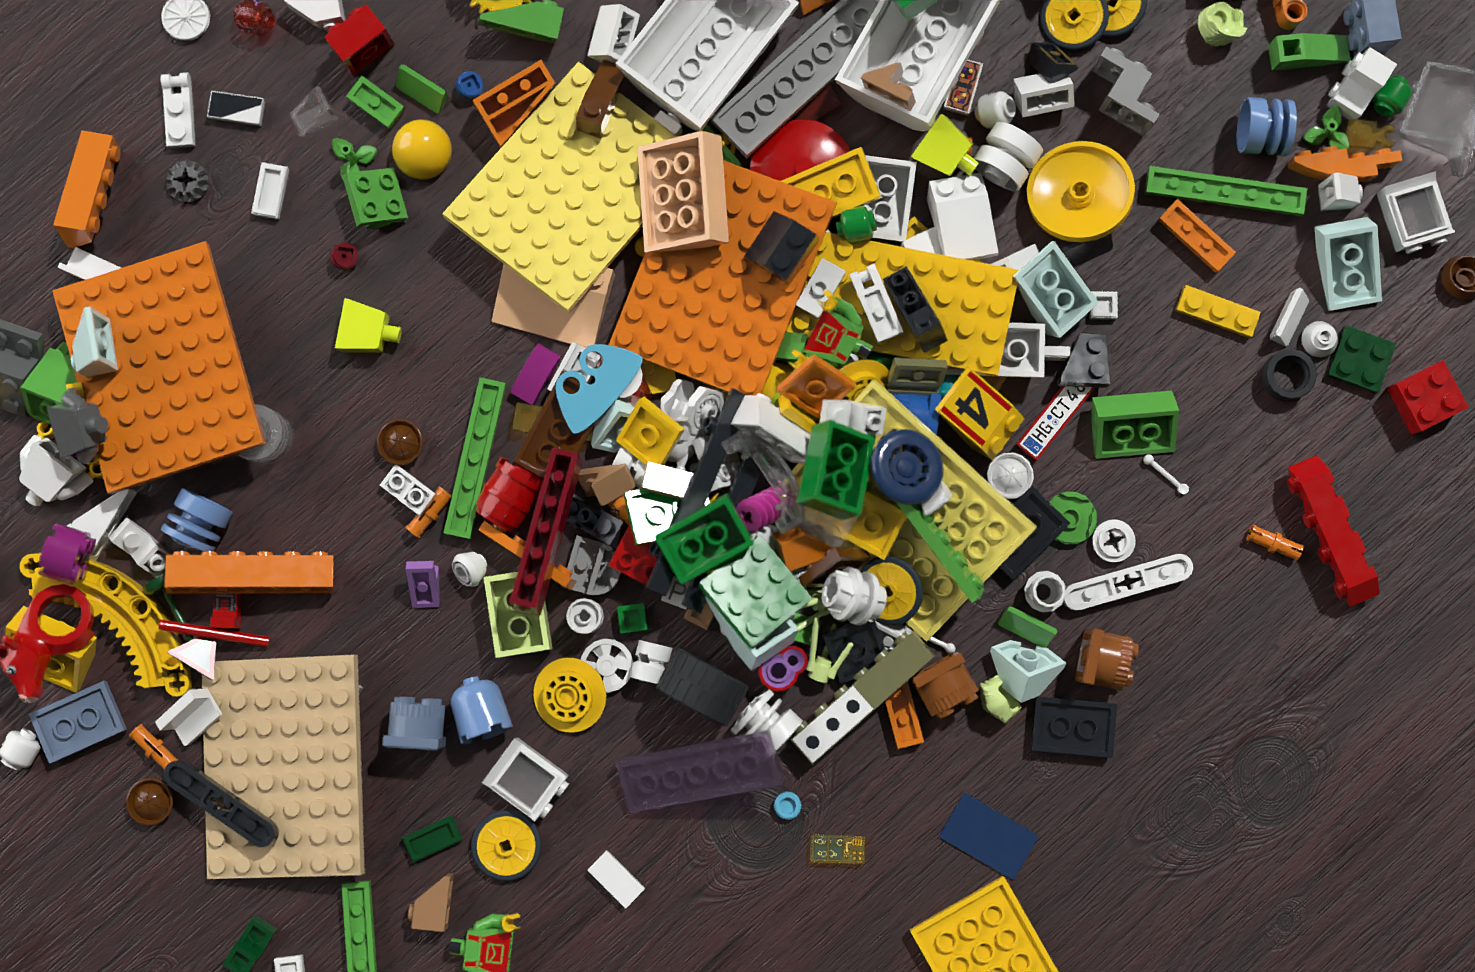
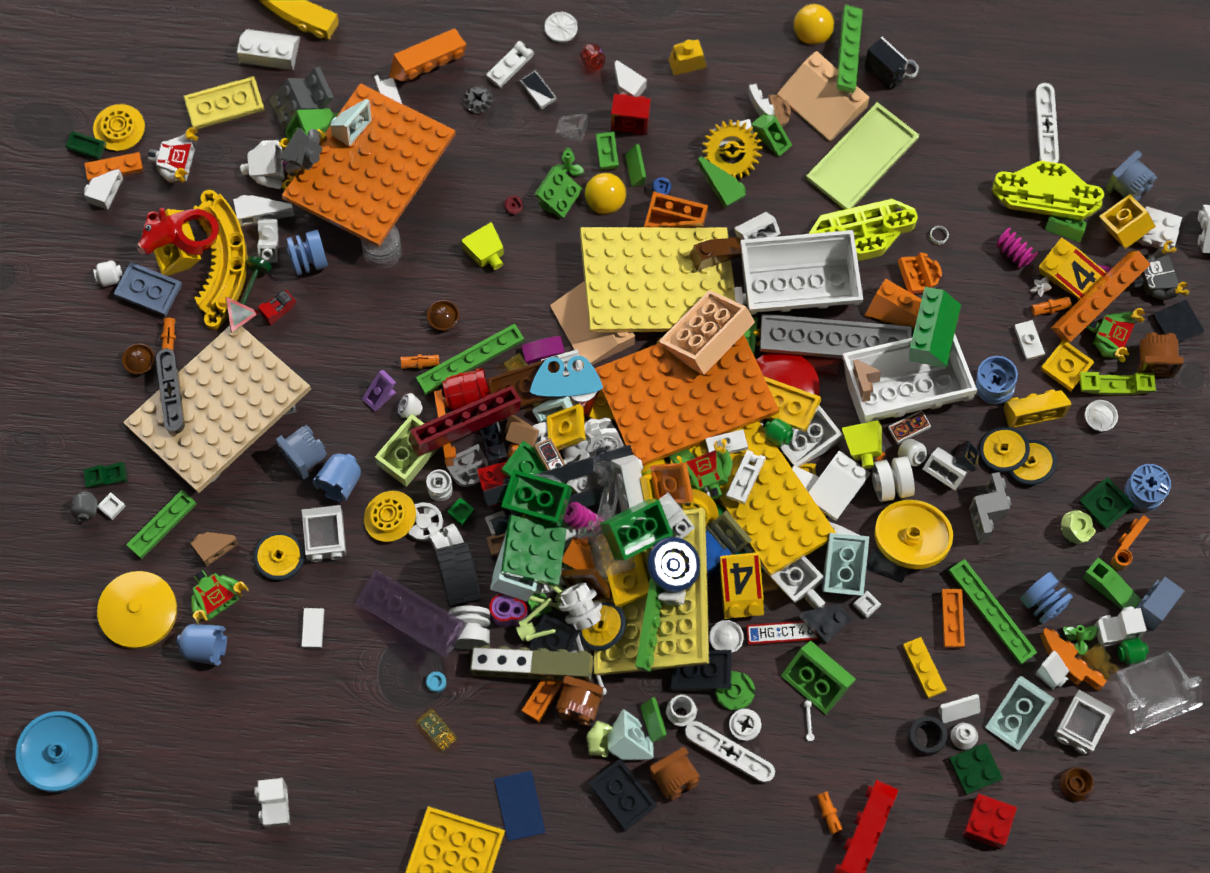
camera: 45 degrees right, 15 degrees down
(66, 554) = (231, 203): magenta brick -> none
(190, 715) = (202, 337): white panel -> none
(214, 633) = (256, 312): red piece -> none
(248, 573) = (304, 301): orange brick -> none
(270, 191) = (511, 142): white tile -> none
(408, 489) = (421, 340): white slope -> none
(432, 838) = (248, 515): dark green tile -> none
(782, 247) = (727, 404): black slope -> none
(915, 309) = (761, 499): black slope -> none

